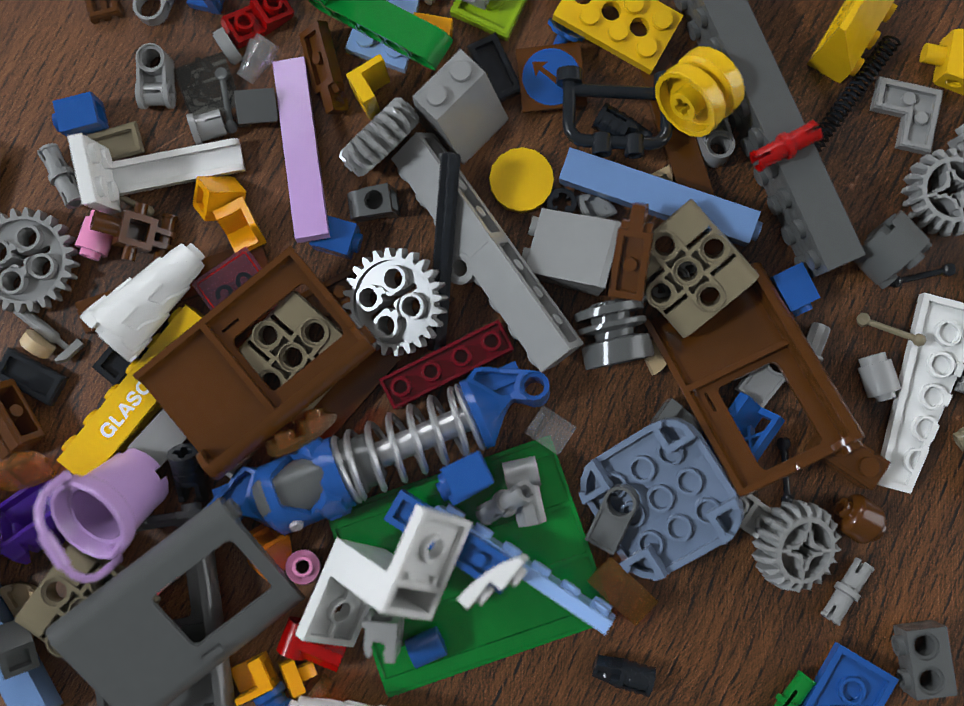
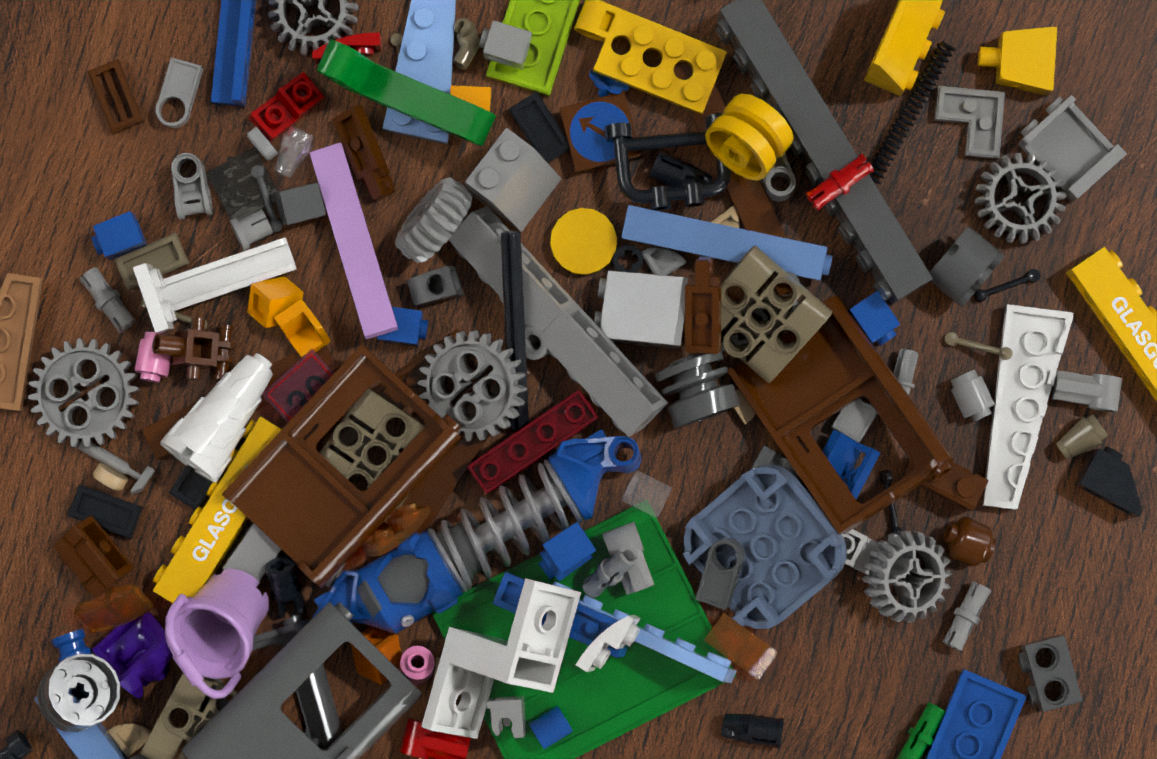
camera: 15 degrees left, 0 degrees up
(366, 80) = (407, 166): yellow panel -> none

